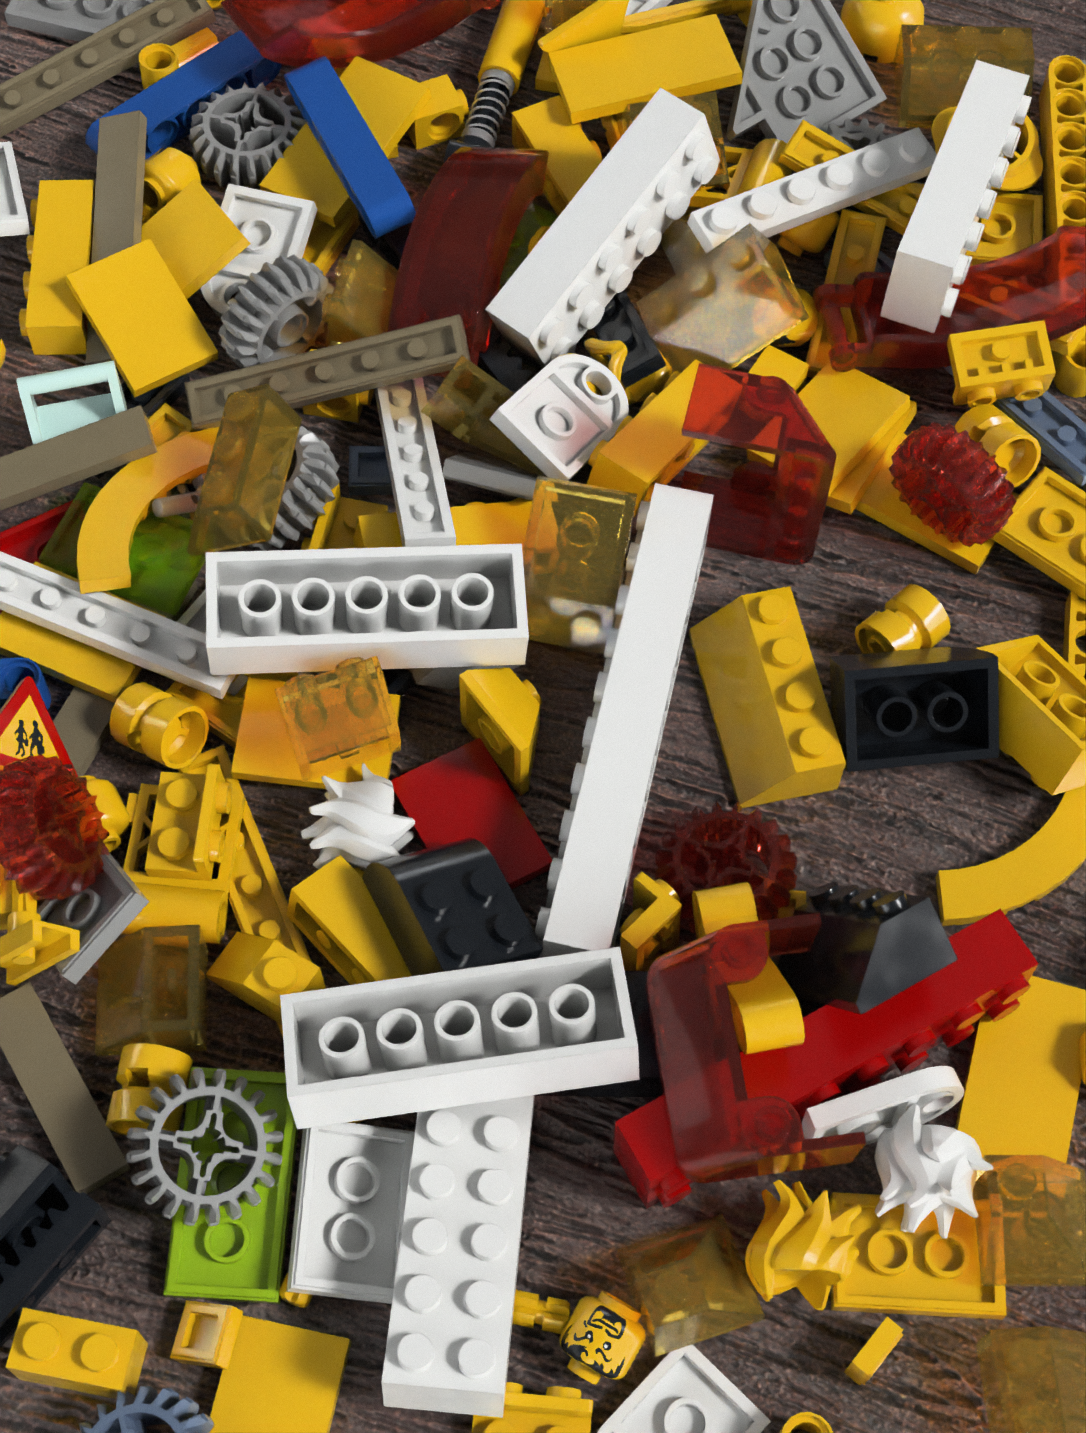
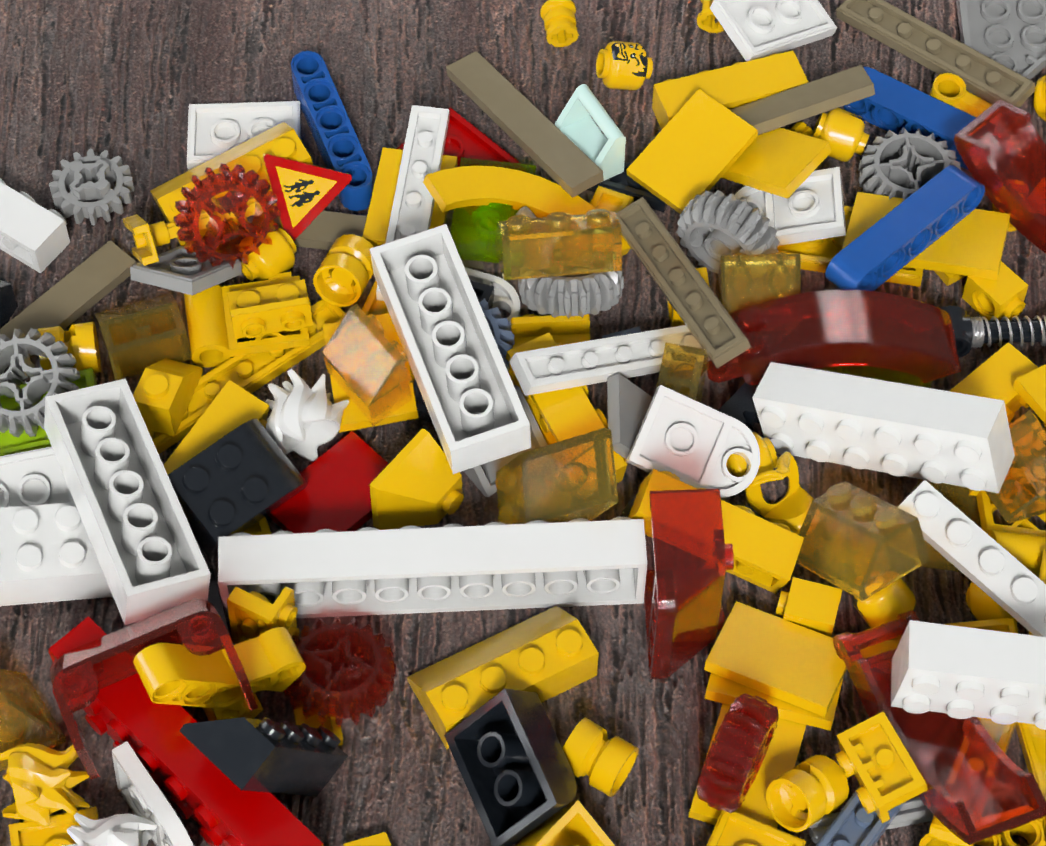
camera: 75 degrees right, 5 degrees down
(624, 324) = (797, 493): black tile -> none

